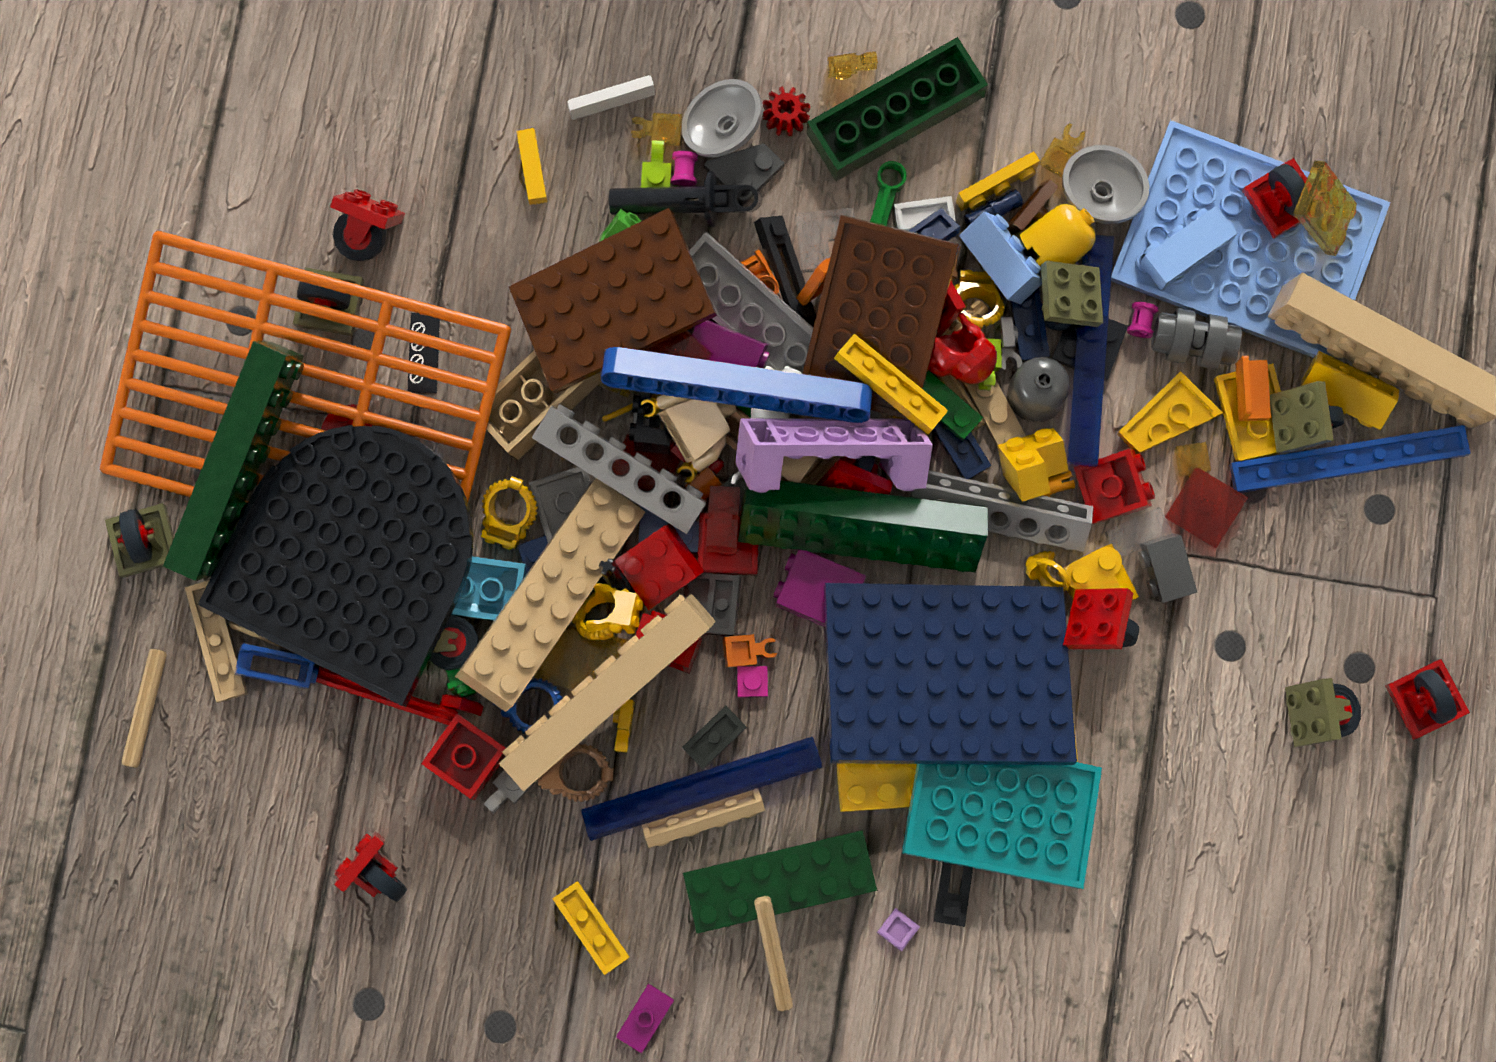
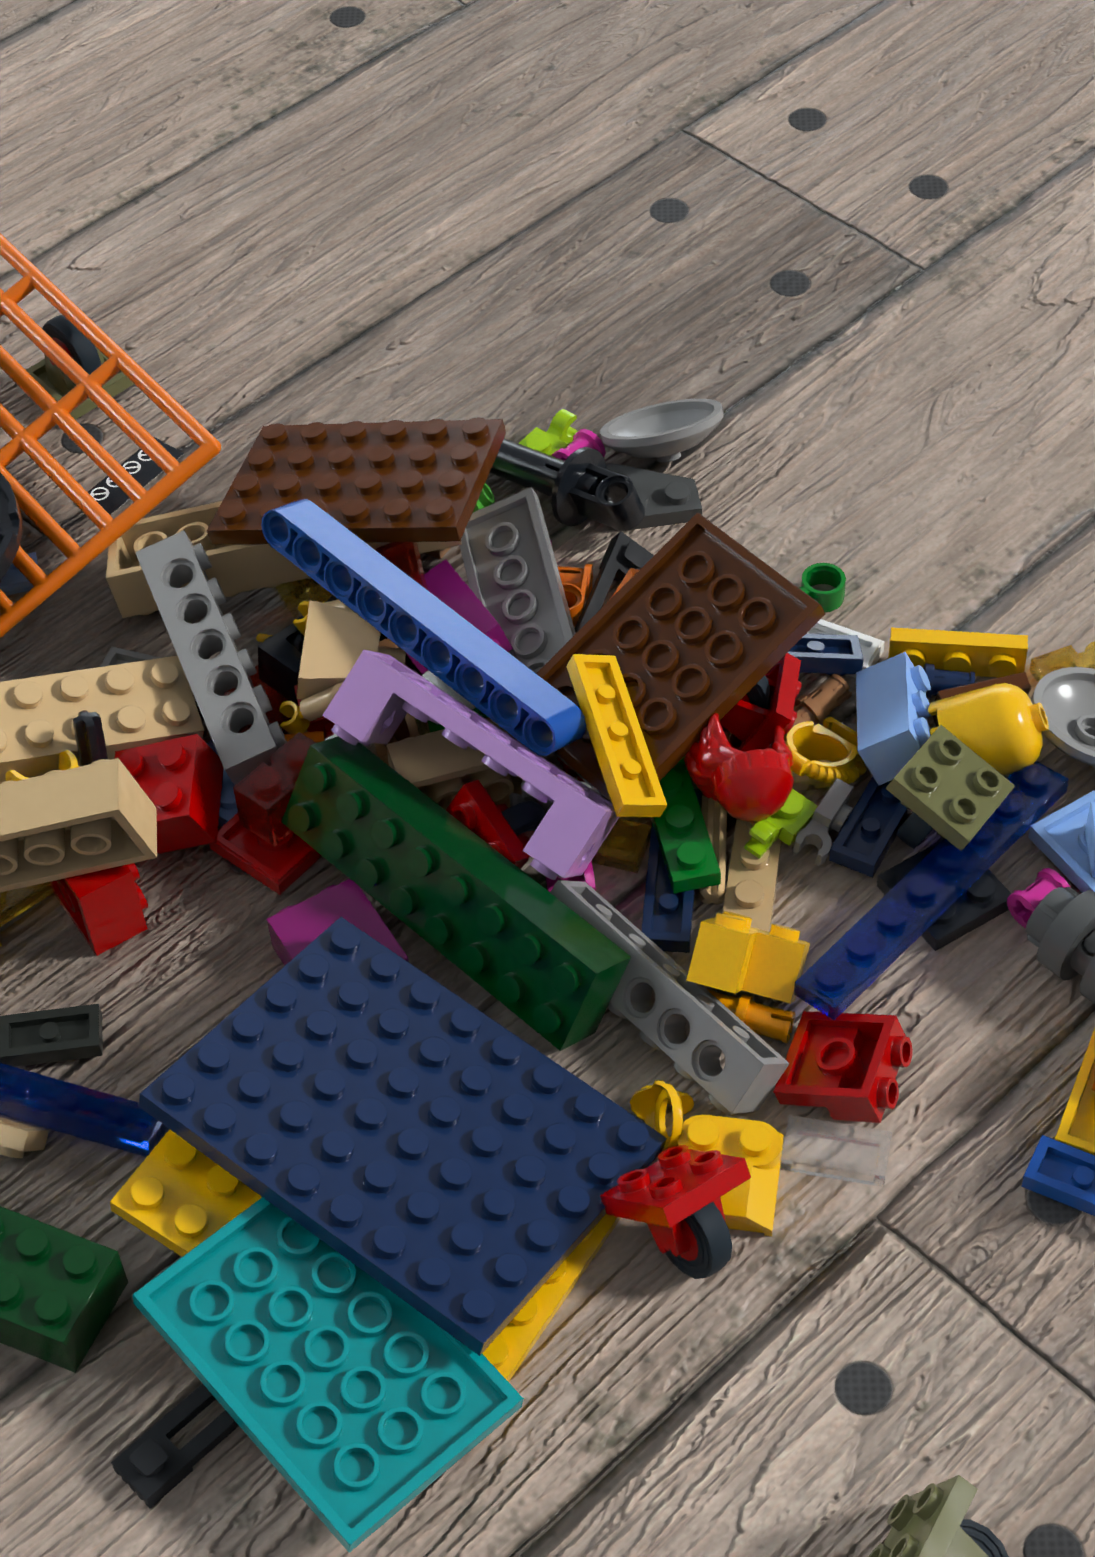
camera: 40 degrees right, 30 degrees down
(362, 228) = (180, 325): red plate -> none
(499, 531) = (48, 639): yellow piece -> none
(531, 166) = (410, 375): yellow piece -> none
(611, 97) = (555, 356): white tile -> none
(662, 128) = (590, 408): clear yellow plate -> none
(720, 598) = (202, 890): dark grey wing -> none
(744, 651) = (182, 960): orange plate -> none
(752, 681) = (161, 1007): dark pink plate -> none
(787, 102) = (746, 462): red gear -> none
(848, 64) = (860, 457): clear yellow plate -> none
(896, 109) = (885, 516): dark green brick -> none
(898, 929) = (55, 1442): lavender tile -> none
(1038, 401) = (825, 885): dark grey cylinder -> none
(1167, 568) = (839, 1207): dark grey brick -> none
(1170, 413) = (993, 1029): yellow wing -> none
(1190, 456) = (989, 1107): clear yellow plate -> none
(1206, 507) = (961, 1171): clear red plate -> none

